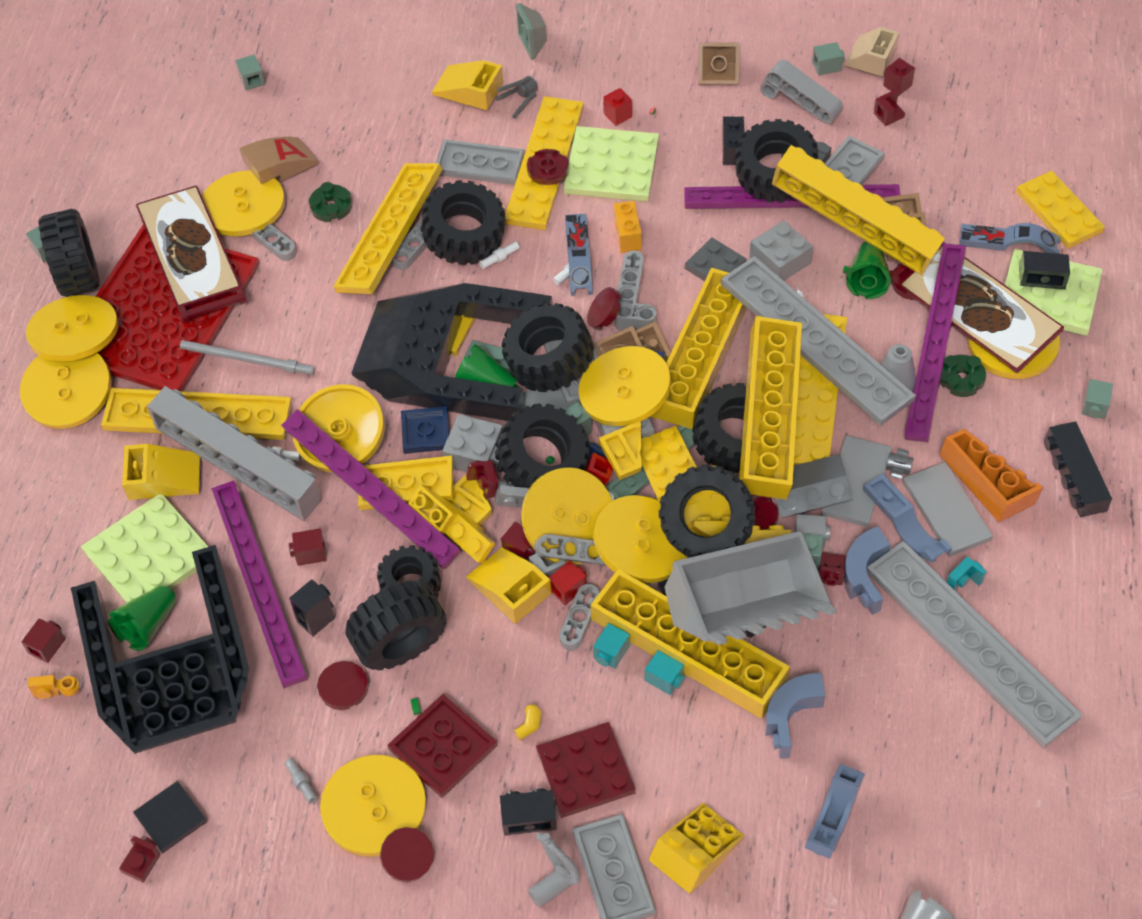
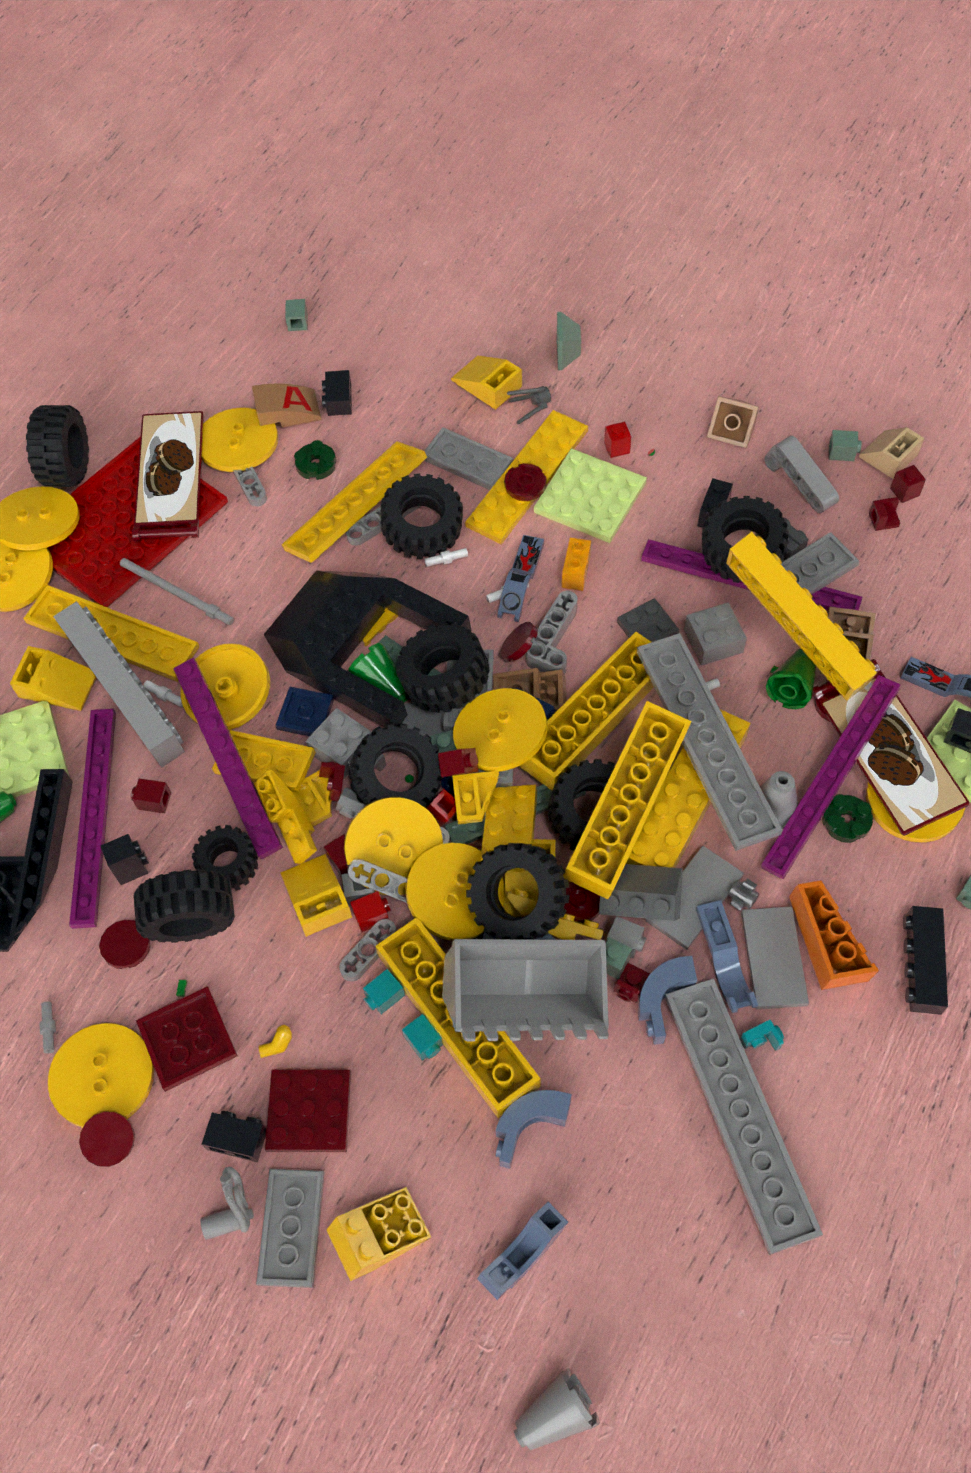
camera: 20 degrees right, 5 degrees up
(325, 134) = (337, 392): none -> black brick
(600, 423) = (458, 762): none -> dark red brick

